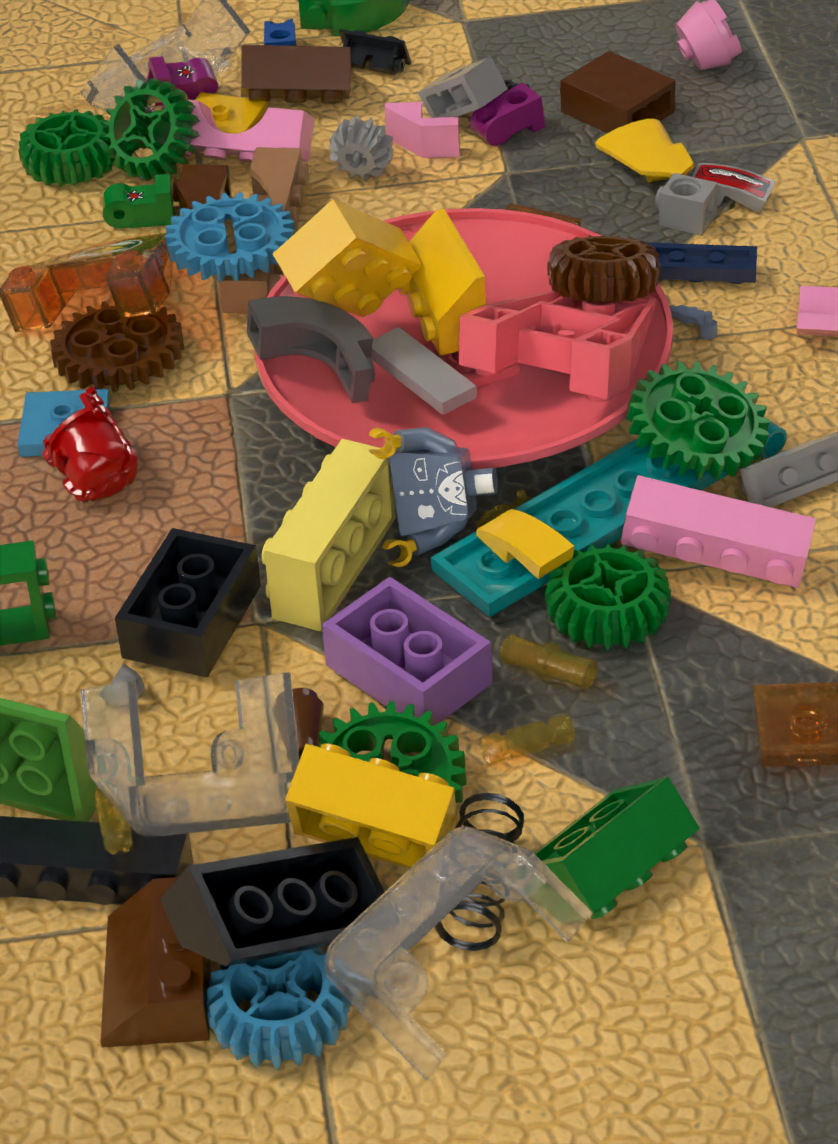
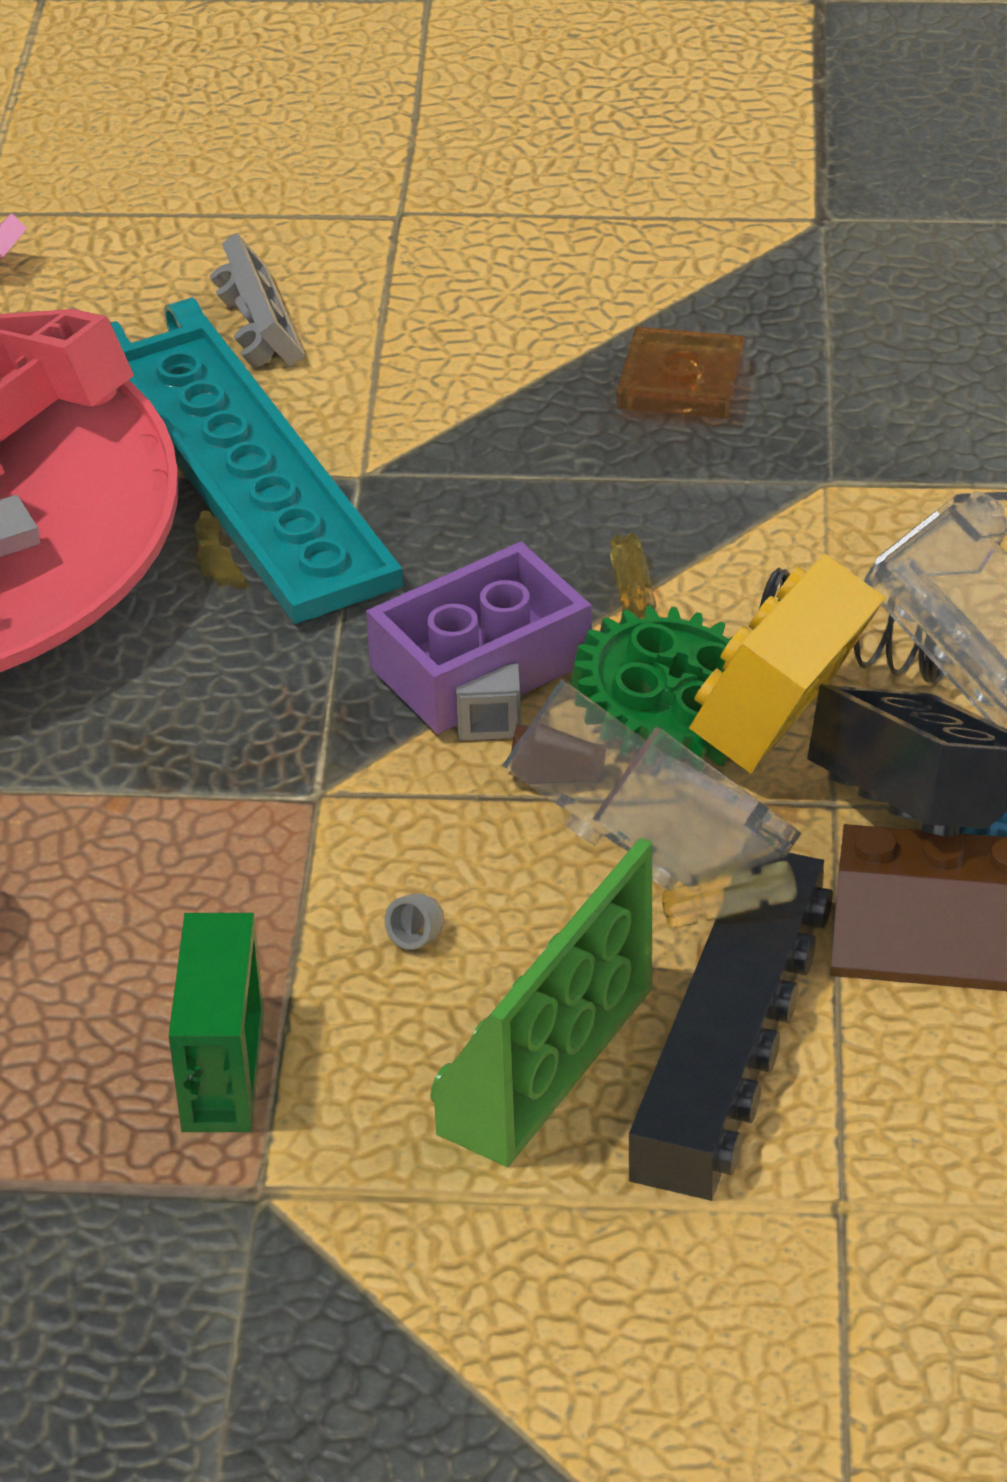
camera: 80 degrees left, 0 degrees up
(188, 602) = (299, 823): black brick -> none
(329, 535) = (233, 670): light yellow brick -> none
(349, 682) = (490, 705): none -> light grey slope
(431, 488) = (198, 570): sand blue torso -> none
(527, 540) = (318, 506): yellow slope -> none
(548, 661) = (529, 527): clear yellow pin -> none
(608, 596) = (422, 477): green gear -> none
(619, 842) = (819, 507): green slope -> none
(697, 420) = (183, 335): green gear -> none
(718, 531) = (361, 368): bright pink brick -> none

